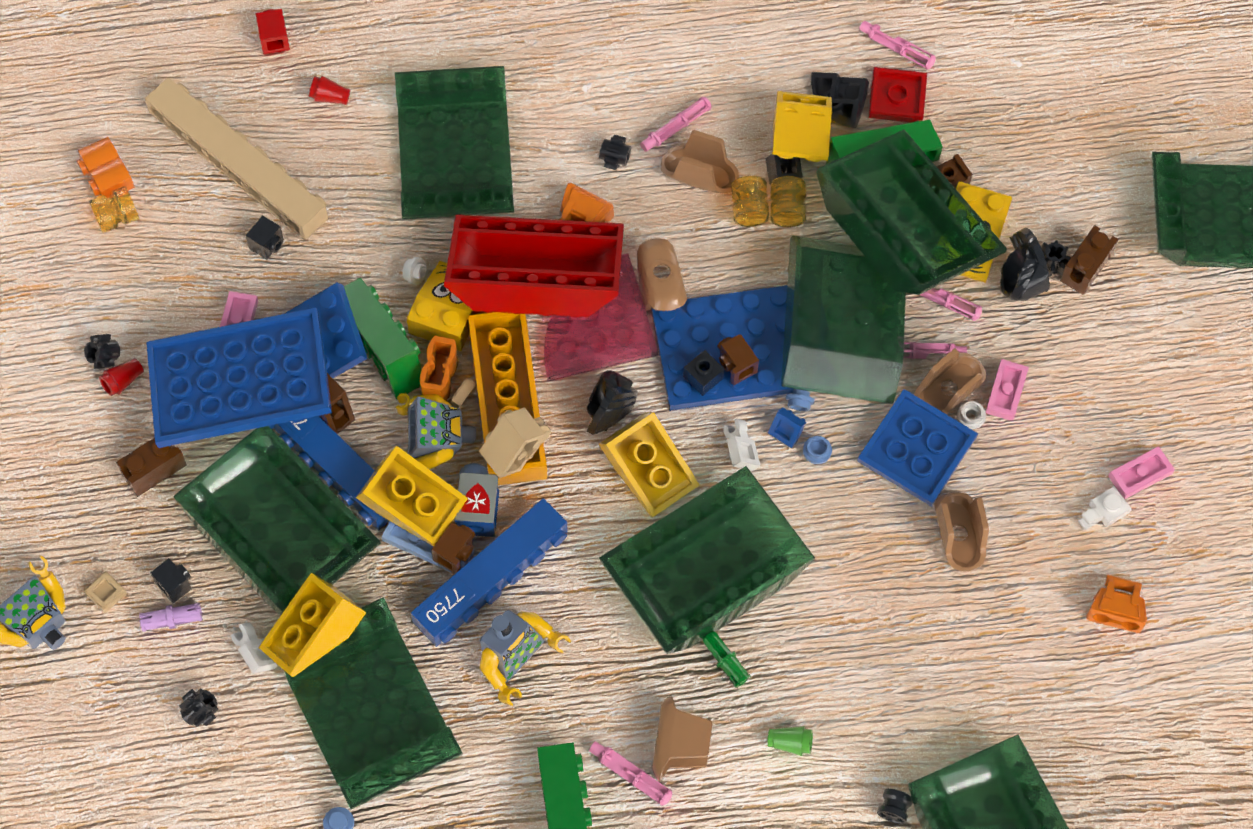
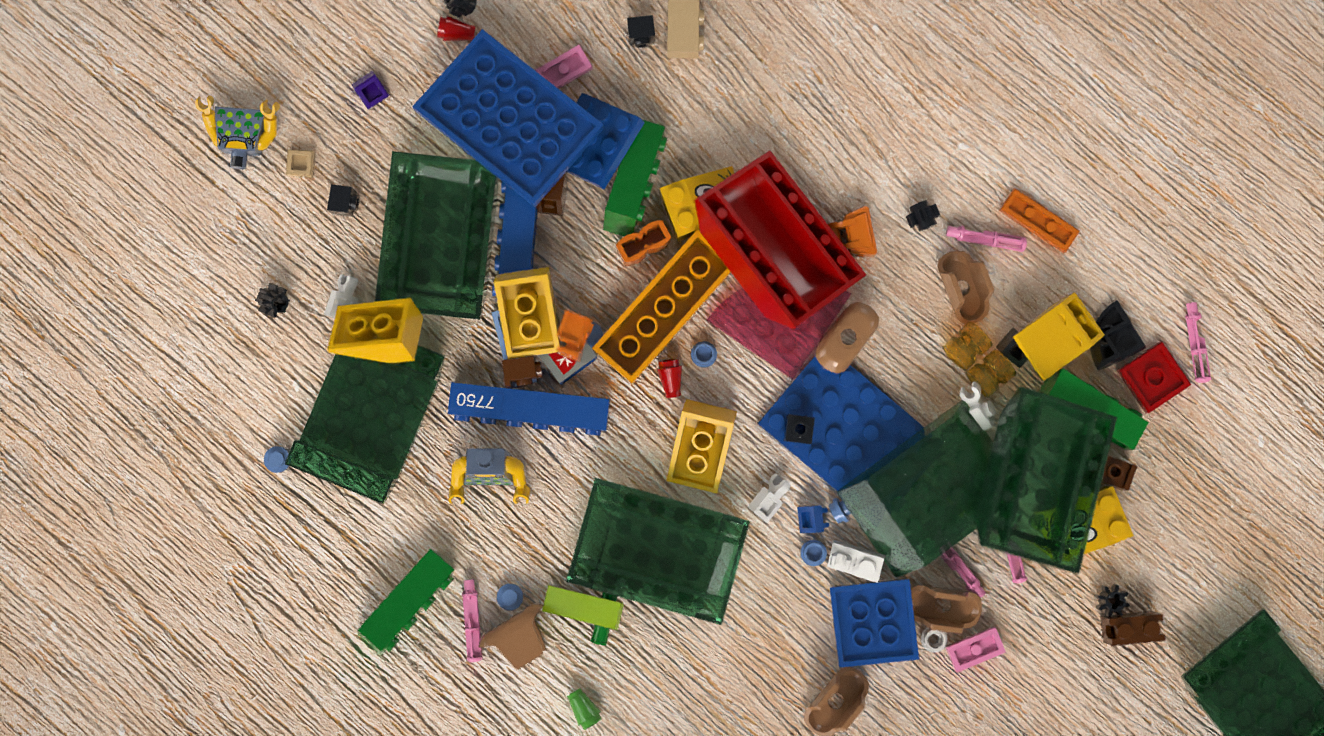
camera: 45 degrees right, 20 degrees up
(101, 485) = (370, 90): none -> dark purple slope
(150, 465) = (400, 111): reddish brown brick -> none
(170, 616) = (319, 222): lavender pin -> none
(415, 270) = (707, 157): white plate -> none
(433, 428) = (595, 279): torso -> none
(454, 142) = (828, 97): clear green slope -> none
(461, 393) = (640, 273): tan tile -> none
(465, 466) = (574, 332): none -> orange piece
(513, 441) = (622, 350): tan brick -> none
(568, 441) = (670, 376): none -> red cone
(573, 402) = (703, 354): none -> medium blue plate
(610, 401) = (722, 381): black hair -> none
(638, 723) = (510, 596): none -> medium blue plate
(697, 78) = (1039, 220): none -> orange tile
(701, 664) = (583, 607): none -> lime tile
(737, 358) = (830, 443): reddish brown brick -> none
(812, 229) = (981, 409): none -> white plate
(853, 420) = (856, 561): none -> white plate
(1025, 269) = (1083, 591): black hair -> none

